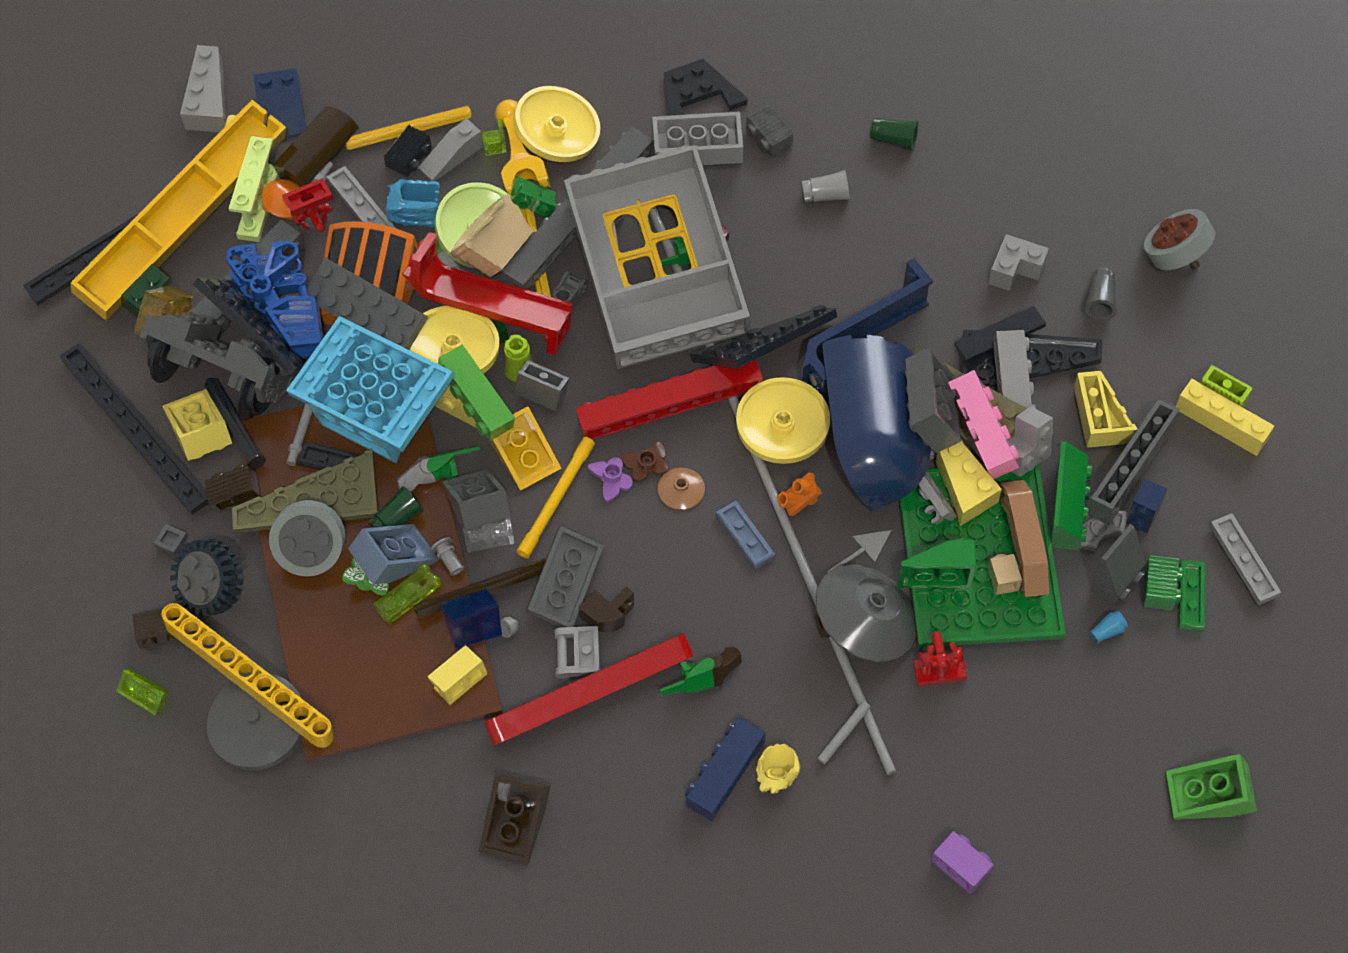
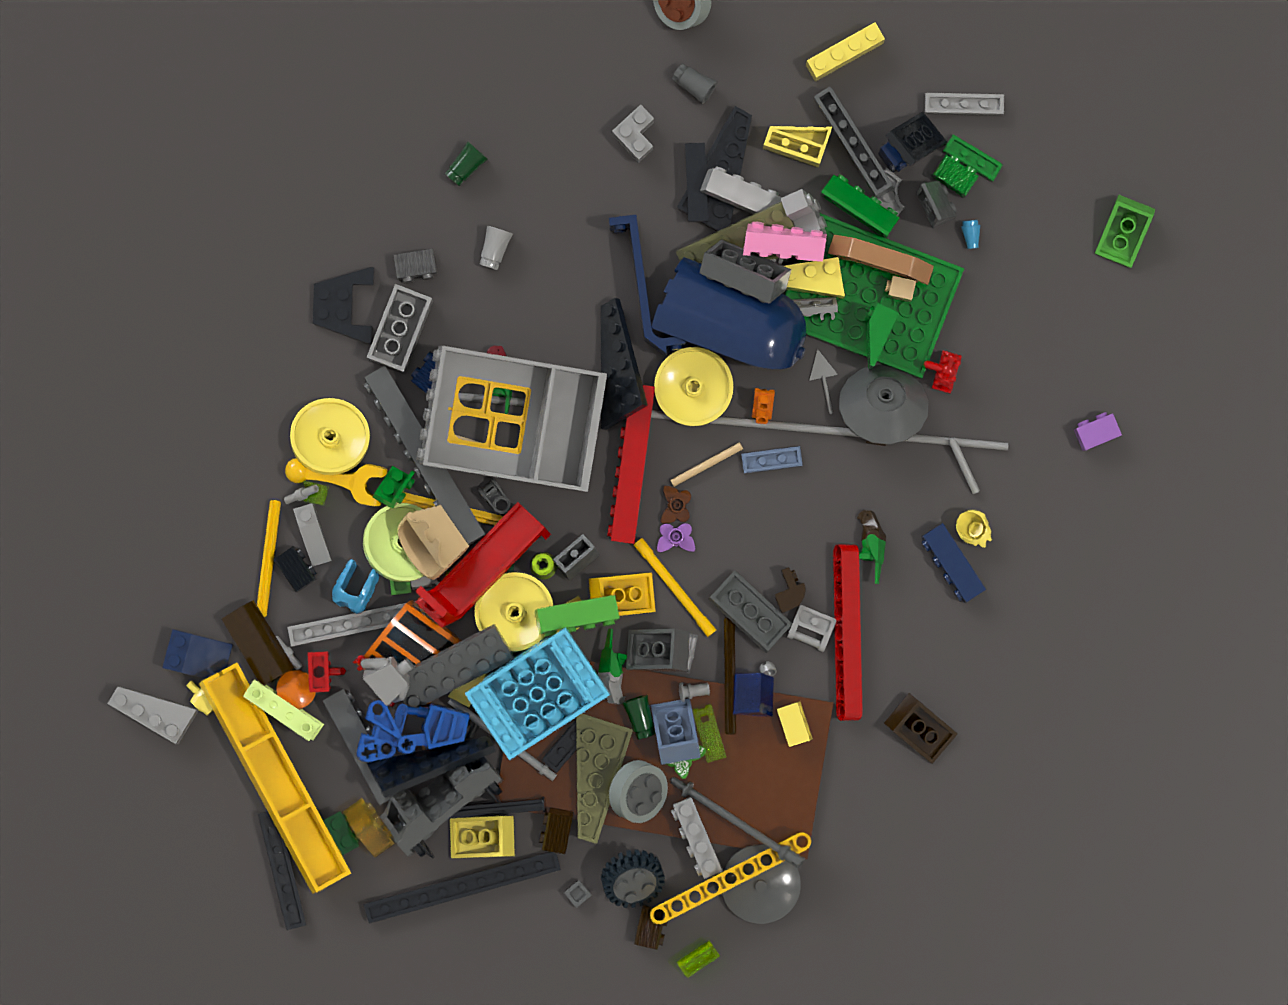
camera: 70 degrees left, 25 degrees up
(283, 624) = (697, 837): none -> light grey brick
(298, 709) = (784, 852): none -> dark grey bar
(323, 245) = (386, 677): none -> light grey torso
(486, 124) = (301, 494): none -> light grey bar
(681, 497) = (702, 497): medium nougat dish -> none
(706, 473) = (706, 464): none -> tan bar
(1176, 512) = (916, 138): none -> black plate
(1227, 386) = (824, 38): lime brick -> none

